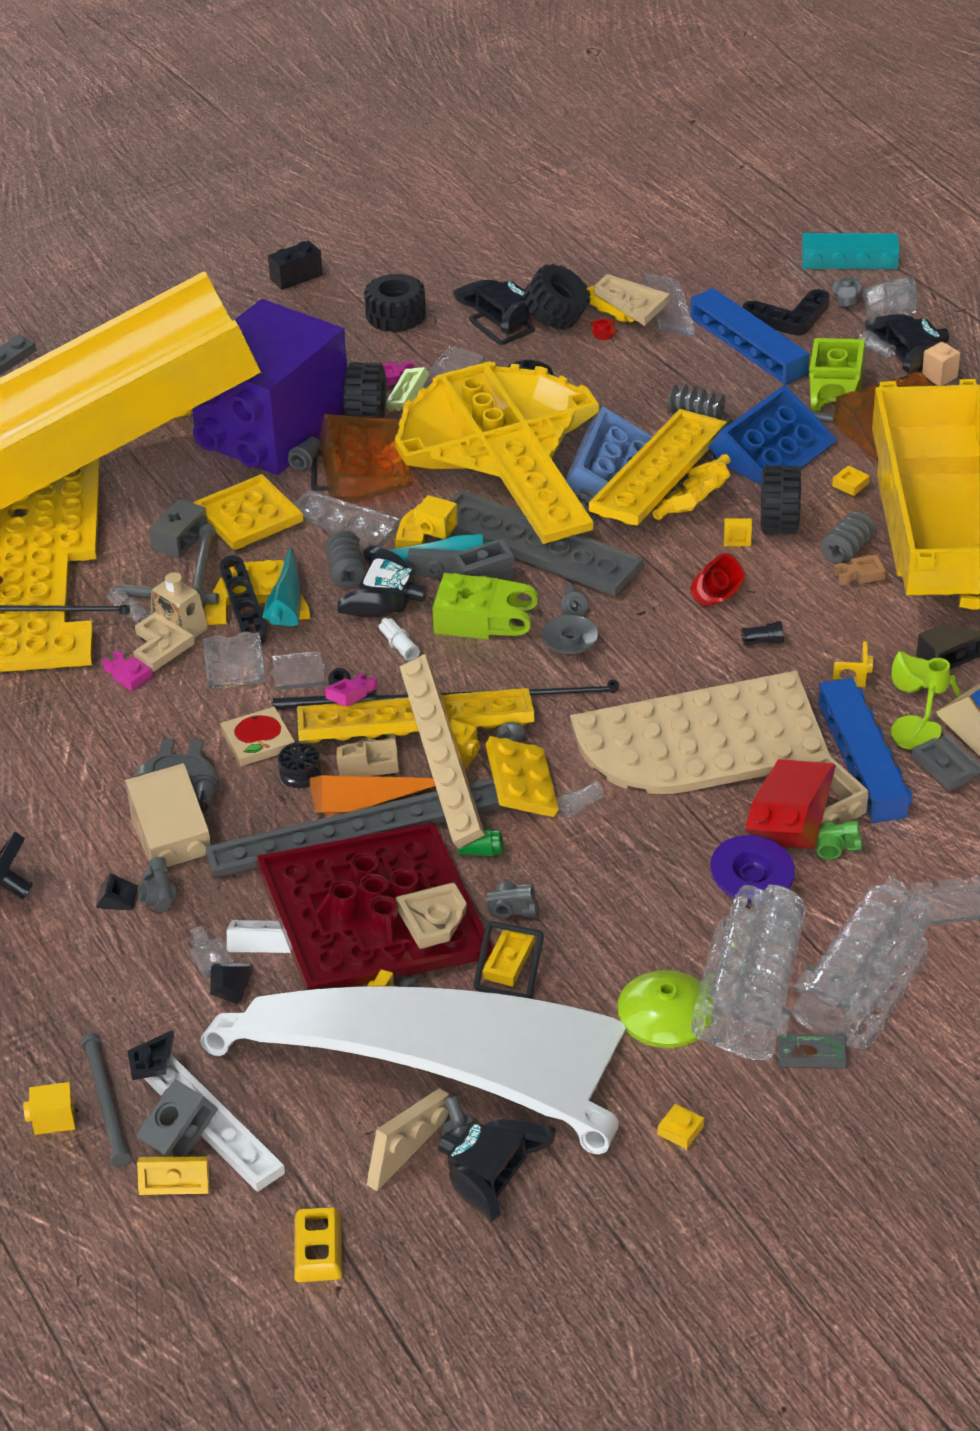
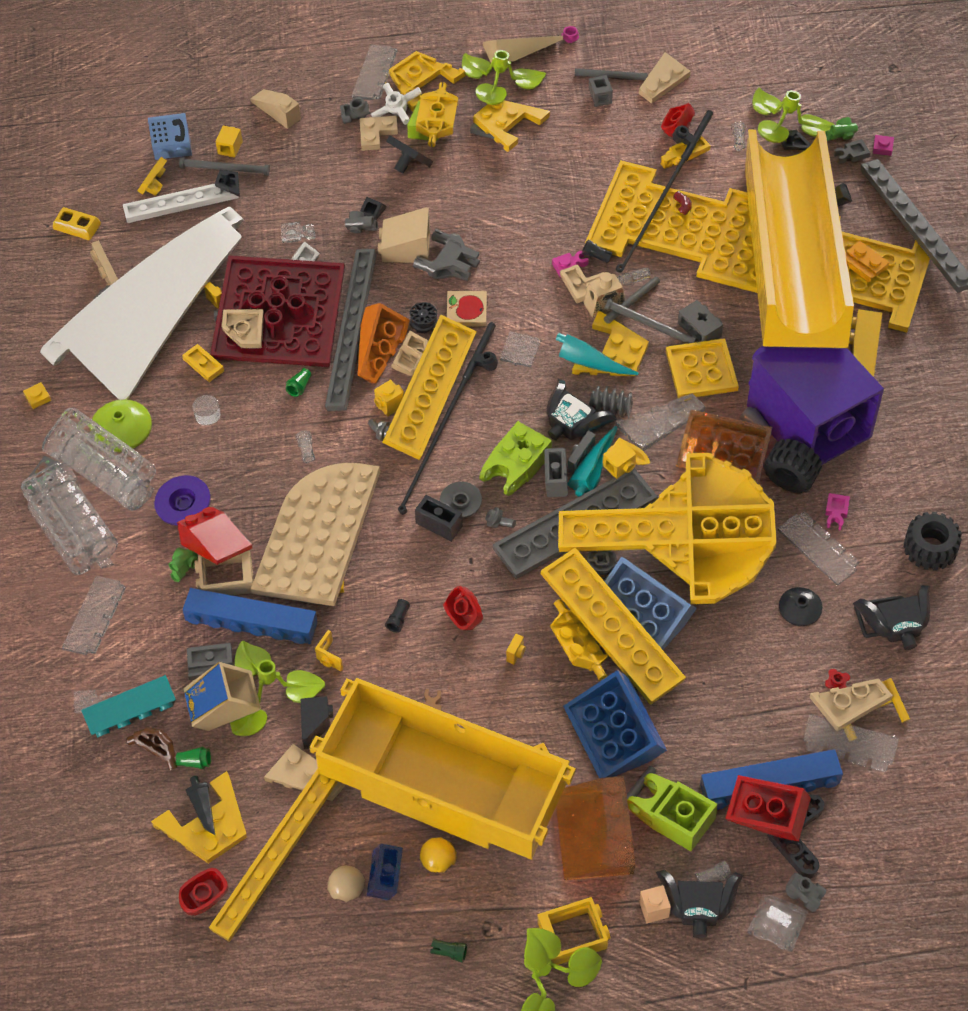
camera: 115 degrees right, 15 degrees up
(84, 1178) = (170, 136): none -> medium blue slope
(101, 644) = (593, 250): none -> black pin
(192, 1116) = (178, 180): dark grey brick -> none
(229, 980) = (268, 235): black piece -> none
(234, 660) = (542, 312): clear slope -> none
(242, 600) = (597, 329): black beam -> none
(349, 691) = (469, 355): dark pink plate -> none
(399, 639) = (515, 408): white axle -> none
(407, 388) = (804, 508): yellowish green tile -> none
(441, 751) = (373, 374): tan plate -> none
(482, 956) = (174, 364): black piece -> none
(489, 1157) = (66, 295): black torso -> none
(513, 900) = (242, 376): dark grey plate -> none
(521, 776) = (340, 419): yellow plate -> none
(556, 296) = (864, 633): black tyre -> none
(586, 919) = (206, 410): none -> clear piece
(613, 635) = (438, 518): none -> black brick
(696, 403) = (687, 692): dark grey piece -> none
(780, 499) = (520, 678): black tyre -> none
(789, 308) = (769, 807): none -> red slope
(848, 537) = (462, 707): dark grey piece -> none
(850, 251) = (869, 928): teal brick -> none

